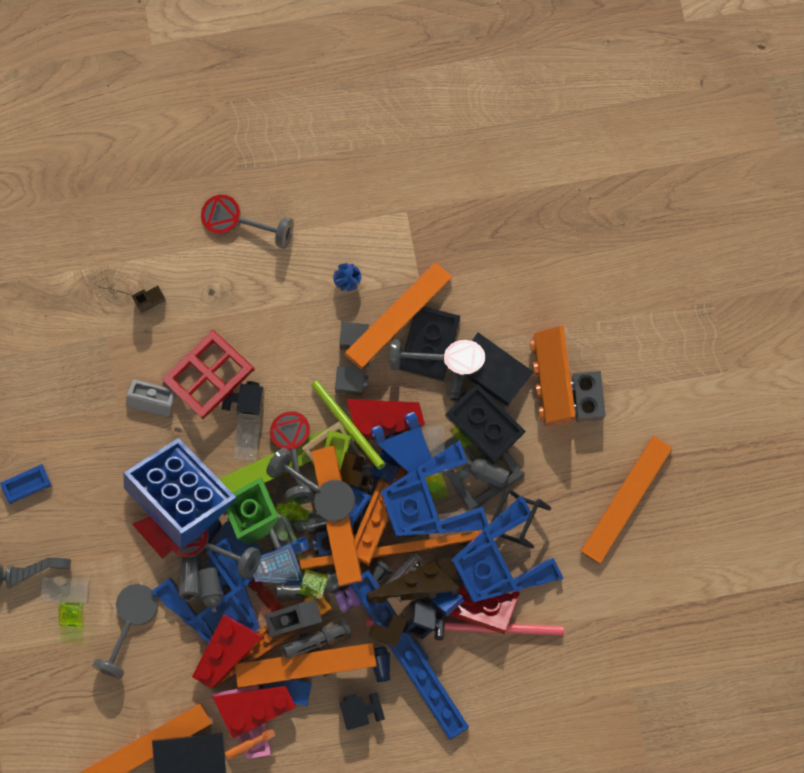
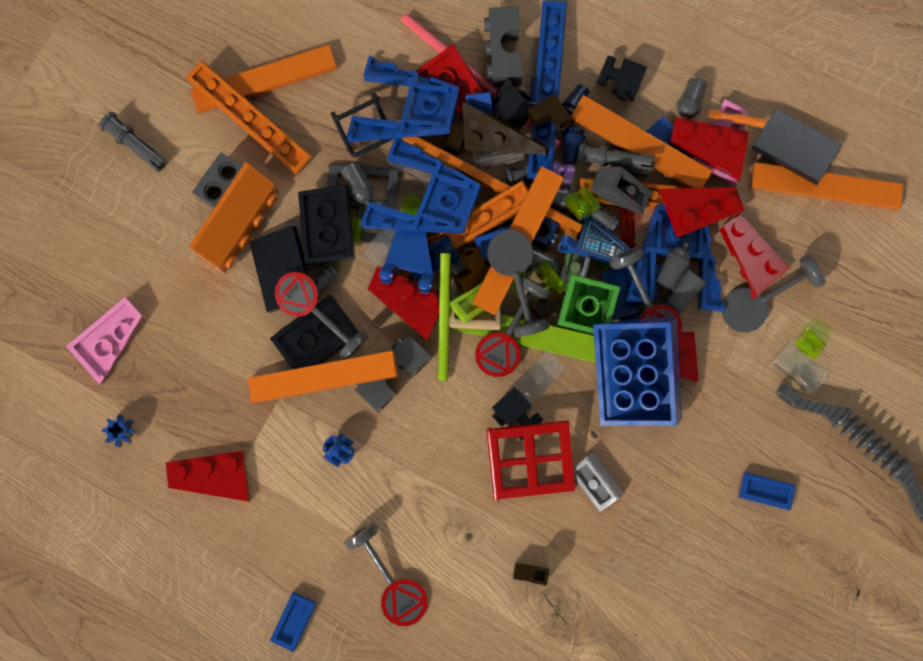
camera: 135 degrees left, 0 degrees up
(158, 649) = (756, 258): none -> red wing
(285, 144) = (293, 621): none -> blue tile
(295, 735) = (690, 102): none -> dark grey piece
(358, 628) = (571, 142): none -> dark blue cone
(421, 193) = (212, 475): none -> red wing
(456, 647) = (502, 26): none -> dark grey arch
(509, 166) = (111, 428): none -> blue gear
(573, 224) = (105, 339): none -> bright pink wing
(610, 460) = (248, 117): none -> orange tile
(670, 376) = (125, 135): none -> dark grey pin

